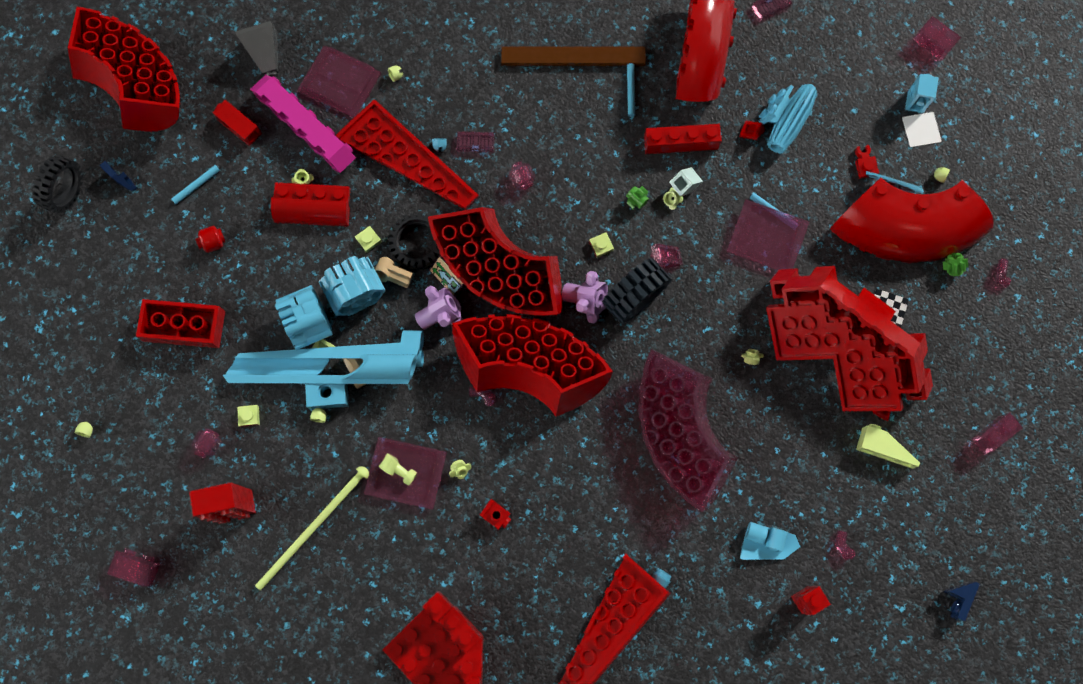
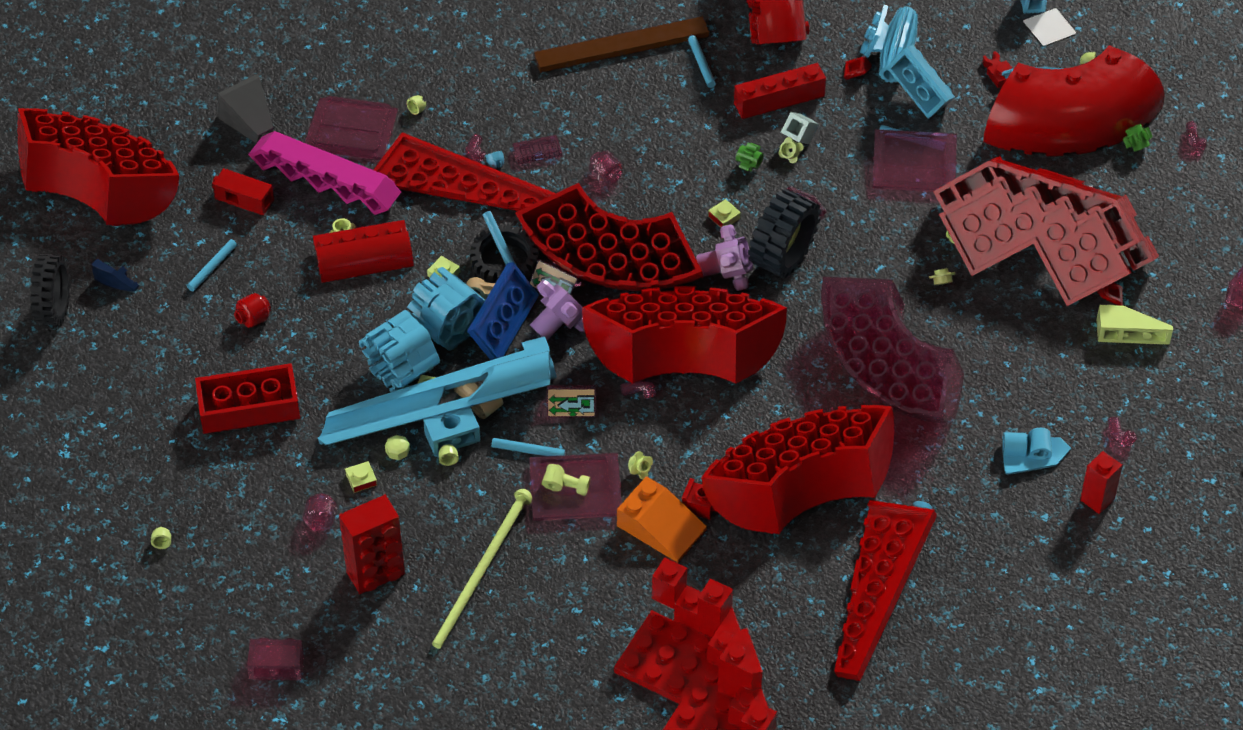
camera: 15 degrees left, 25 degrees down
(283, 396) = (397, 447): none -> yellowish green tile
(381, 425) = (526, 448): none -> medium azure bar
(397, 298) = (503, 312): none -> blue tile
(416, 230) = (498, 238): none -> medium azure bar
(425, 128) = (473, 149): none -> clear pink arm
(427, 390) = (571, 400): none -> panel
(459, 526) = (659, 520): none -> orange slope
(579, 513) = (801, 466): none -> red brick
(797, 165) = (920, 81): none -> medium azure slope

